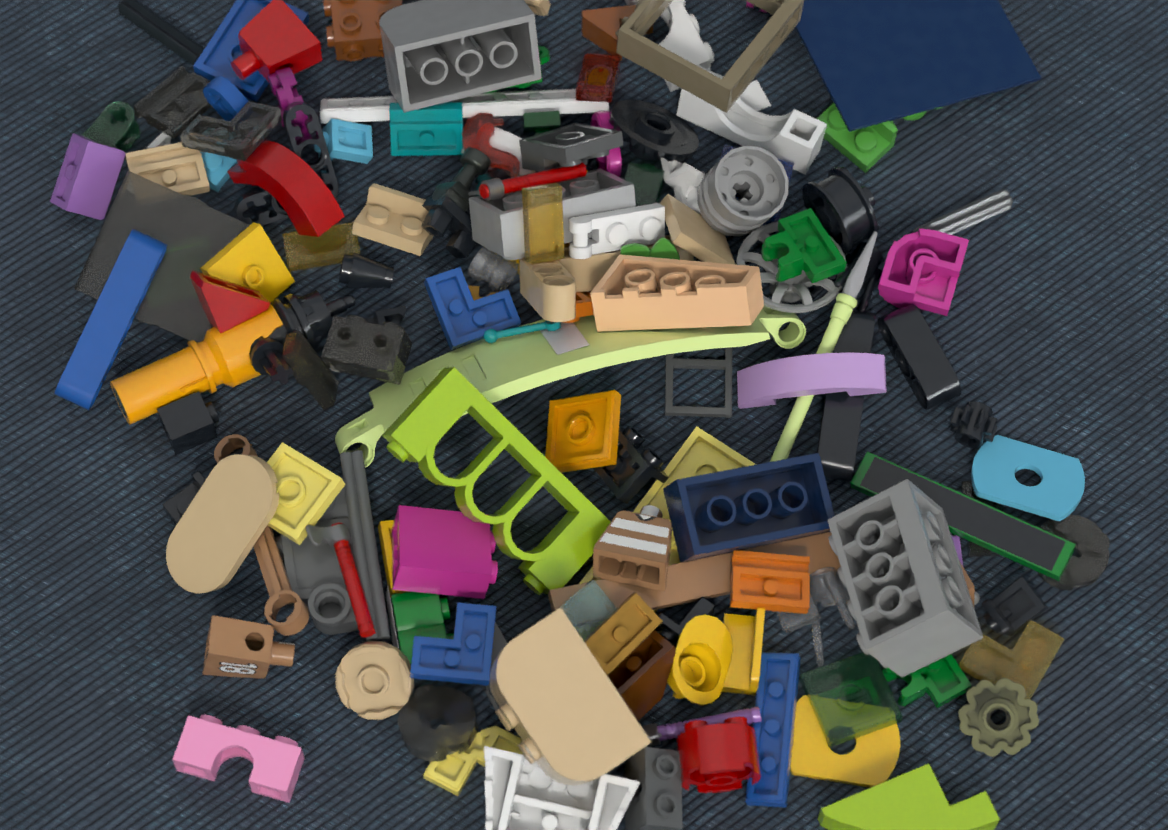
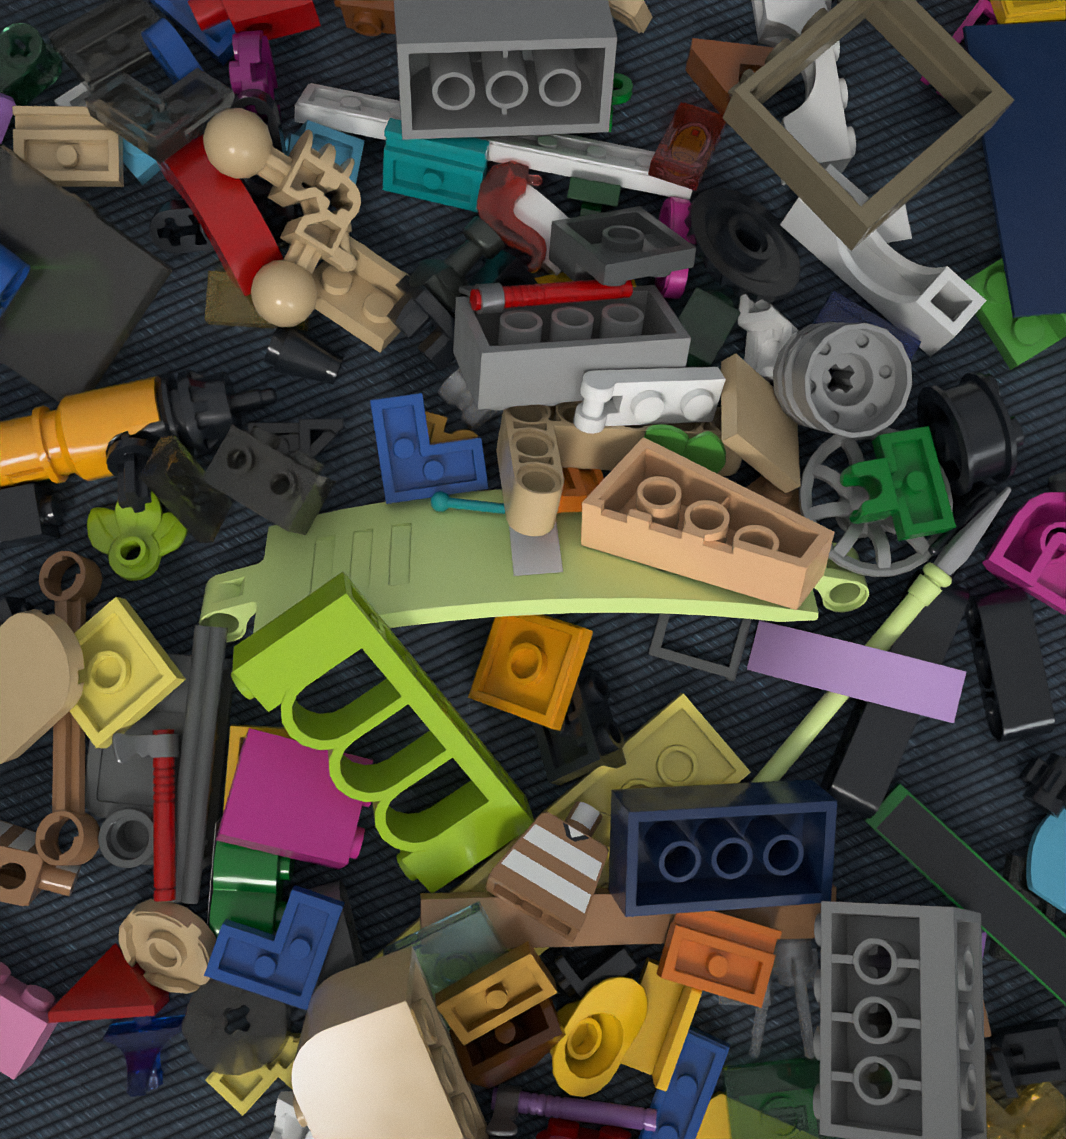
camera: 15 degrees right, 20 degrees up
(227, 302) = (90, 368): red slope -> none
(252, 263) = (137, 325): yellow plate -> none
(274, 416) = (123, 530): none -> lime plate
(338, 728) = (110, 992): none -> red slope
(343, 150) = (242, 147): none -> tan piece
(373, 760) = (141, 1046): none -> clear blue piece
(543, 223) = (544, 374): clear yellow tile -> none

